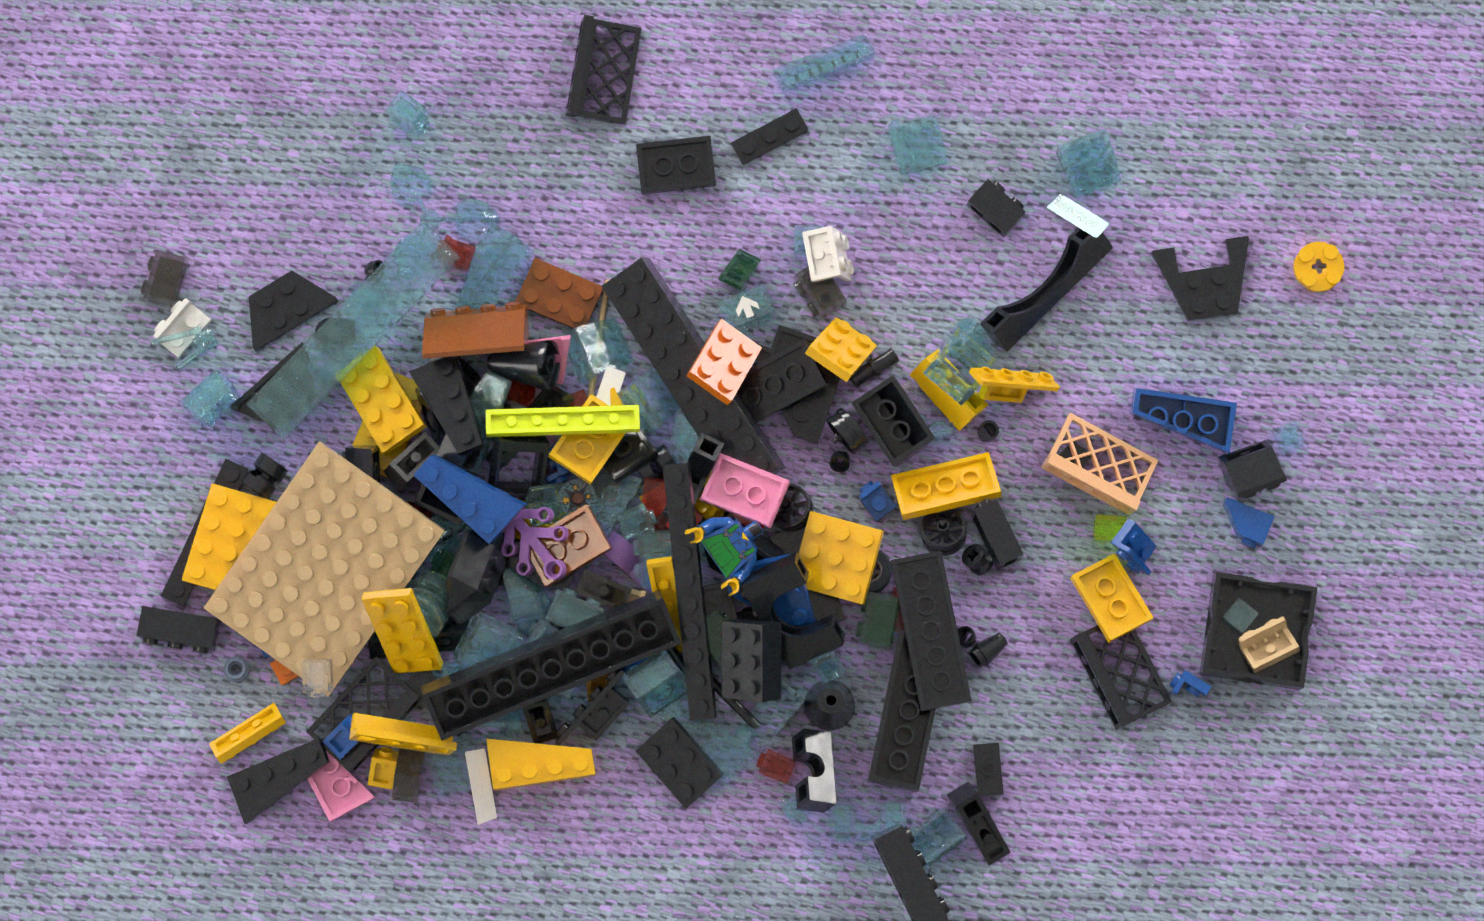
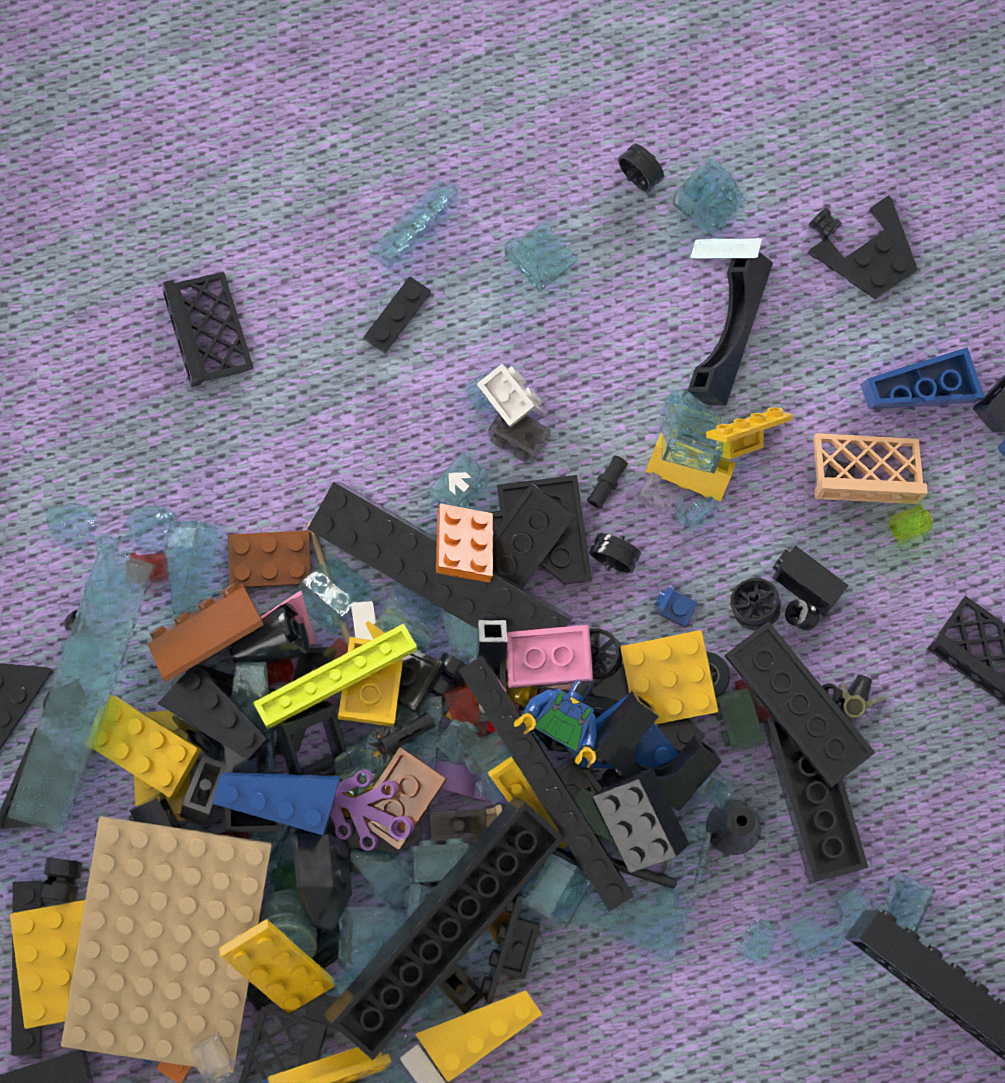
camera: 30 degrees left, 5 degrees down
(408, 114) = (36, 455): clear light blue brick -> none
(560, 475) = (358, 729): blue bracket -> none
(598, 495) = (406, 733): none -> black pin
(676, 165) = (321, 382): black plate -> none
(679, 762) = (618, 959): black plate -> none
(739, 271) = (433, 452): clear green slope -> none
(775, 766) = (713, 914): clear red bracket -> none
(816, 751) = (747, 880): arch -> none
(838, 467) = (627, 584): black hinge -> none
(841, 349) = (570, 477): yellow plate -> none
(893, 421) = (655, 521): black slope -> none
(946, 486) = (735, 559): yellow plate -> none
(978, 655) = (856, 705): none -> olive plant
(978, 822) = (937, 869): black slope -> none
(988, 769) = (918, 812): black plate -> none
(991, 428) = (748, 485): black hinge -> none
(996, 207) = (645, 278): black brick -> none
(1042, 109) = (641, 167): none -> black wheel
(1111, 598) = (947, 588): yellow plate -> none
(1134, 547) = (944, 529): blue bracket -> none
(1177, 234) = (824, 223): none -> black wheel
(1310, 277) = (971, 179): yellow plate -> none

